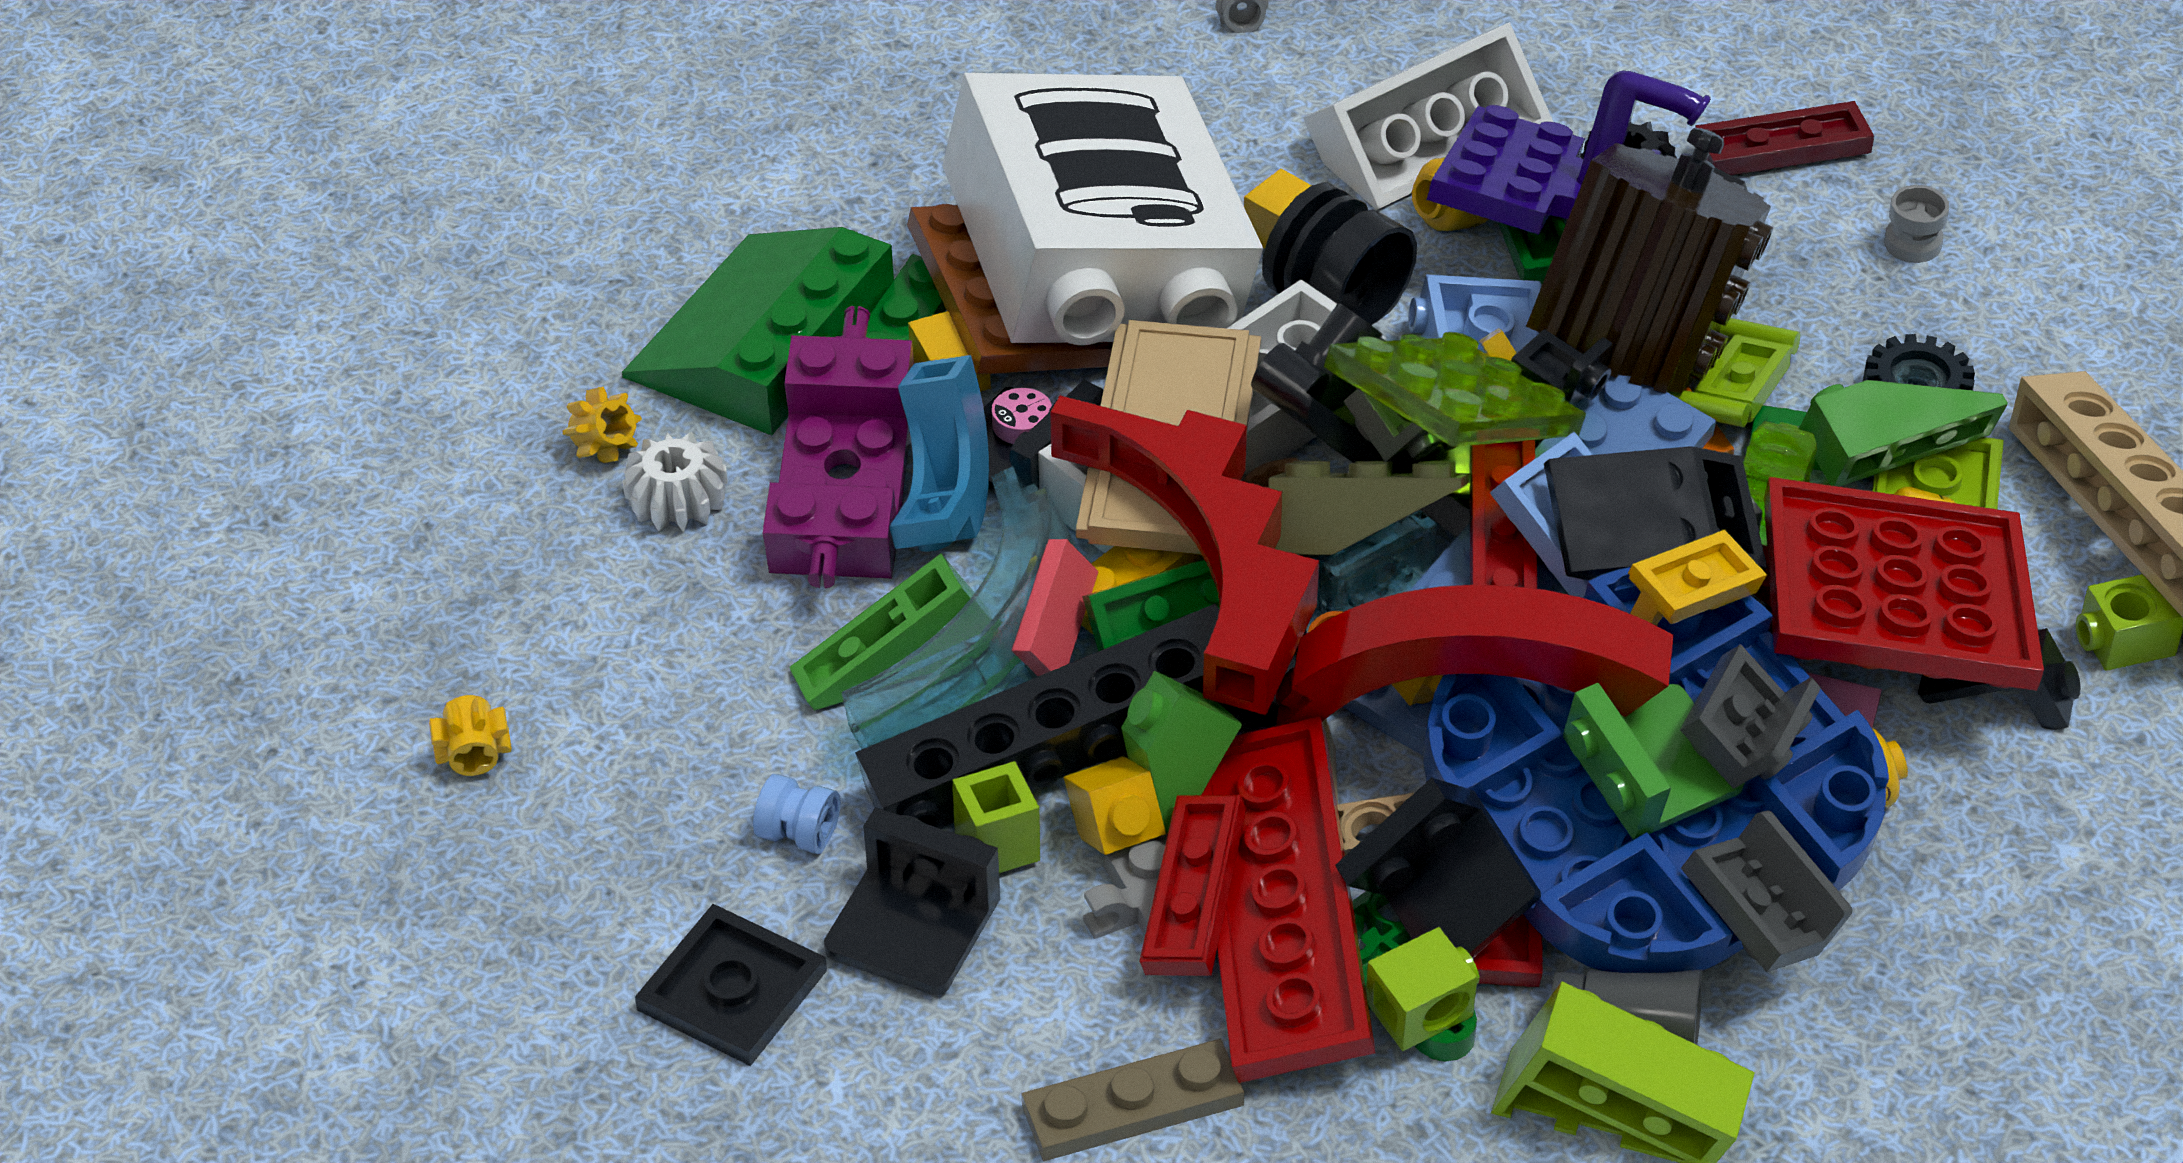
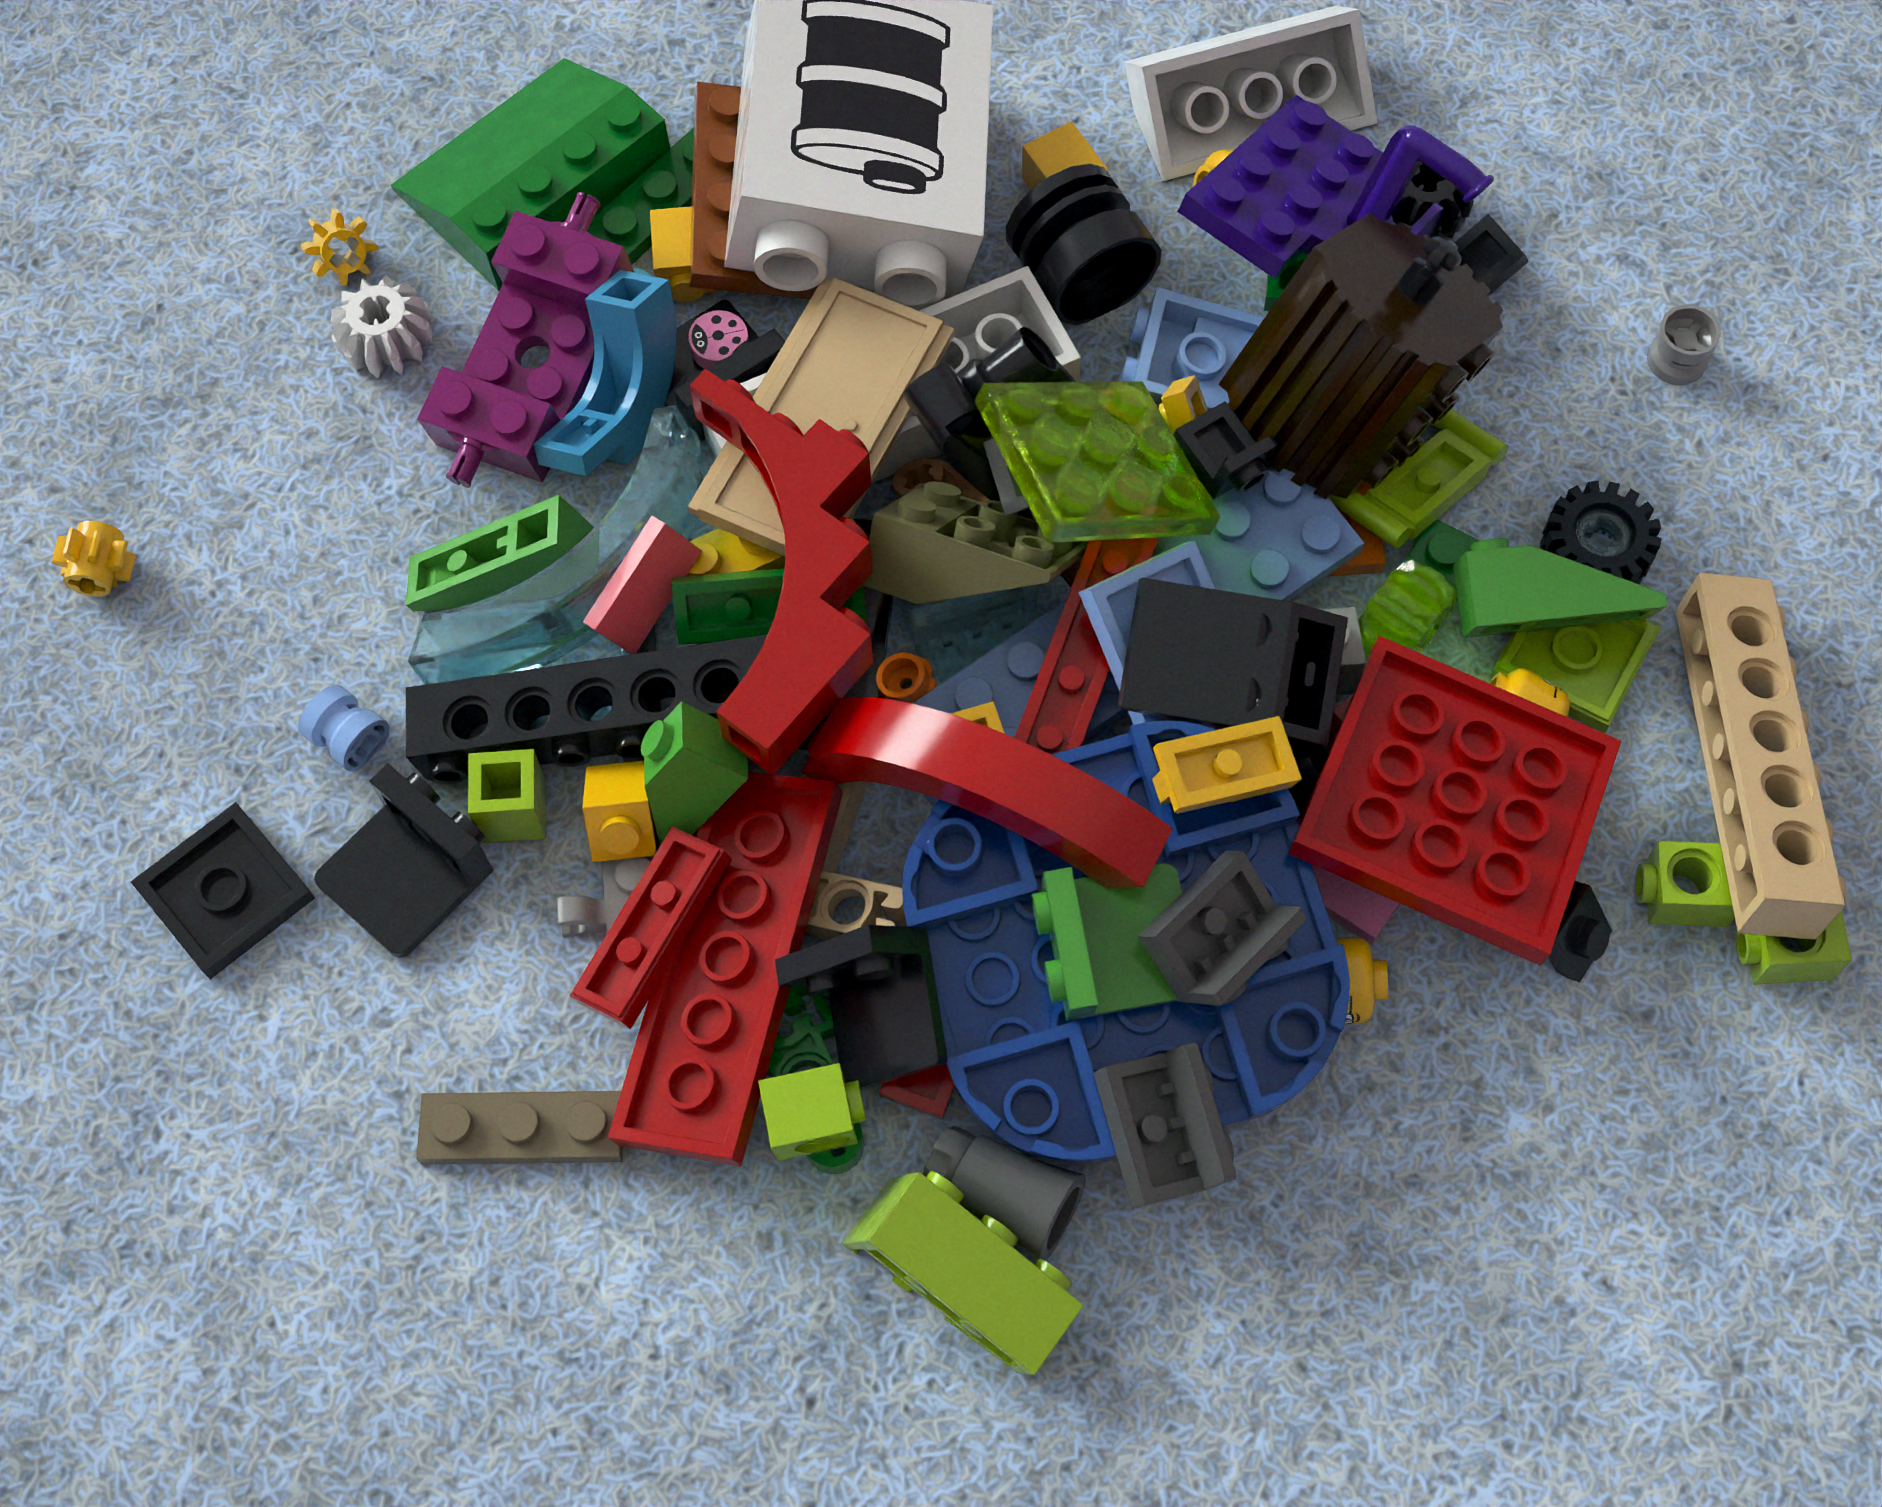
camera: 20 degrees right, 20 degrees up
(1791, 138) = (1595, 204): dark red plate -> none

